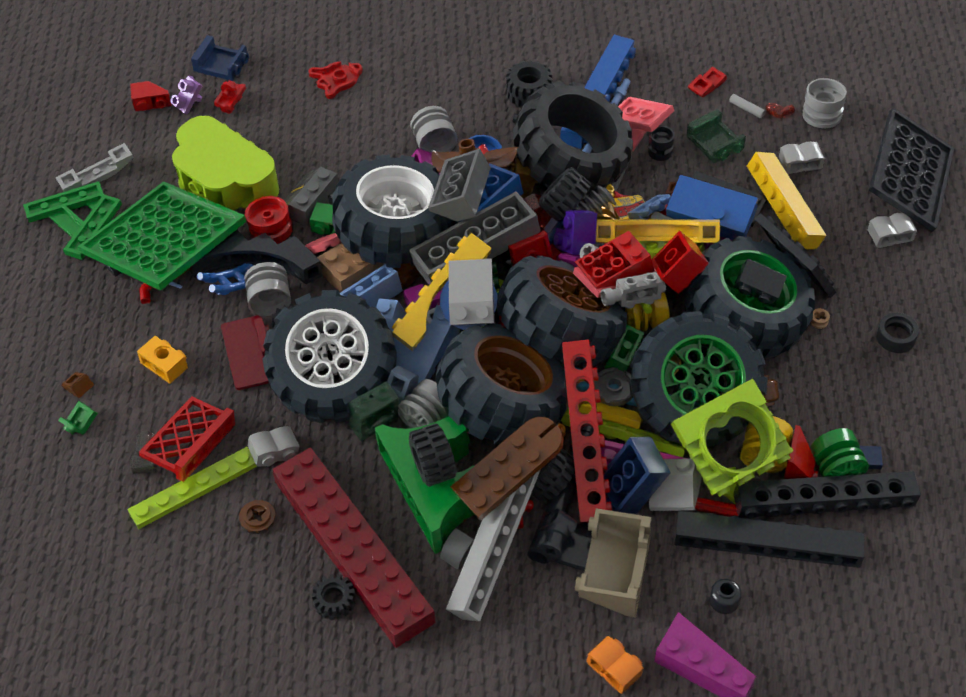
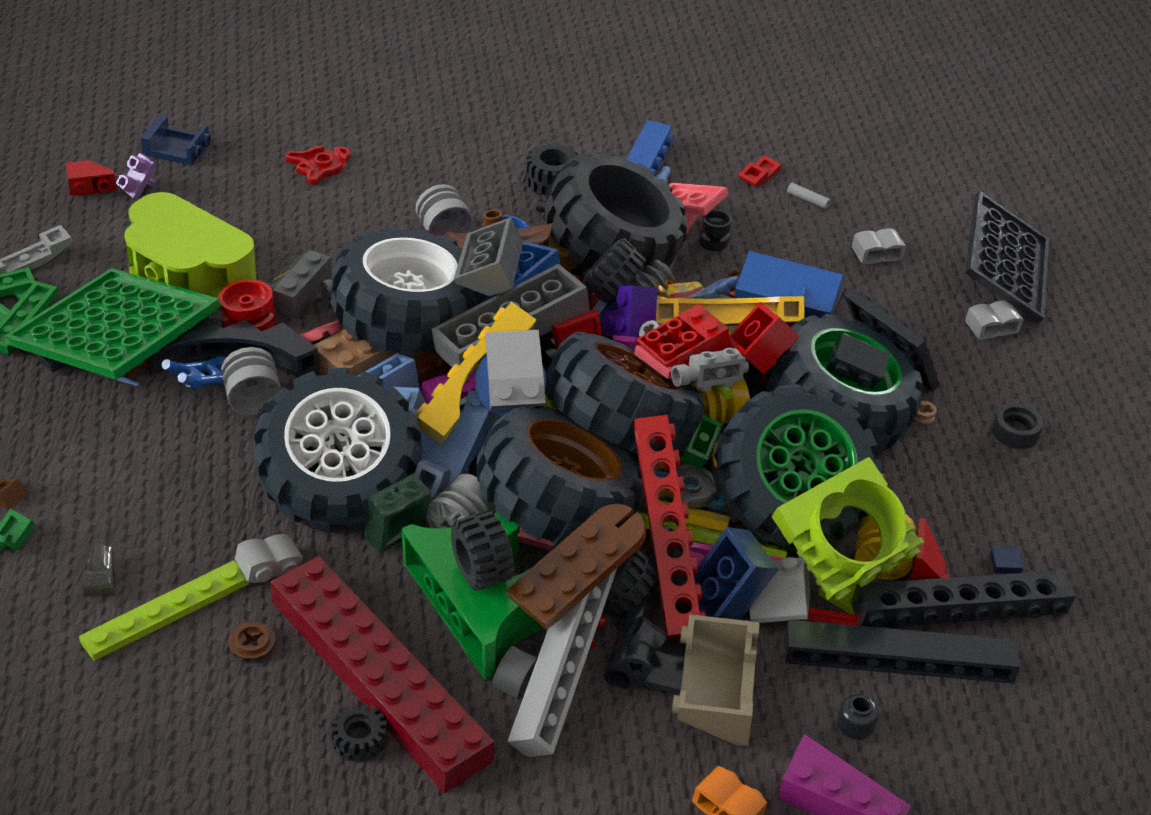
camera: 10 degrees left, 10 degrees down
(145, 293) = (92, 386): red arm -> none
(162, 359) = (118, 462): light orange brick -> none
(202, 443) = (175, 556): red fence -> none
(229, 96) = (190, 178): red hips -> none
(245, 351) = (228, 453): dark red bracket -> none
(321, 219) = (316, 308): green slope -> none
(714, 137) = (774, 226): clear green panel -> none
(779, 111) = (846, 201): clear red arm -> none
(786, 200) = (844, 259): yellow brick -> none
(824, 103) = (898, 190): light grey wheel -> none
(839, 454) = (973, 551): green wheel -> none

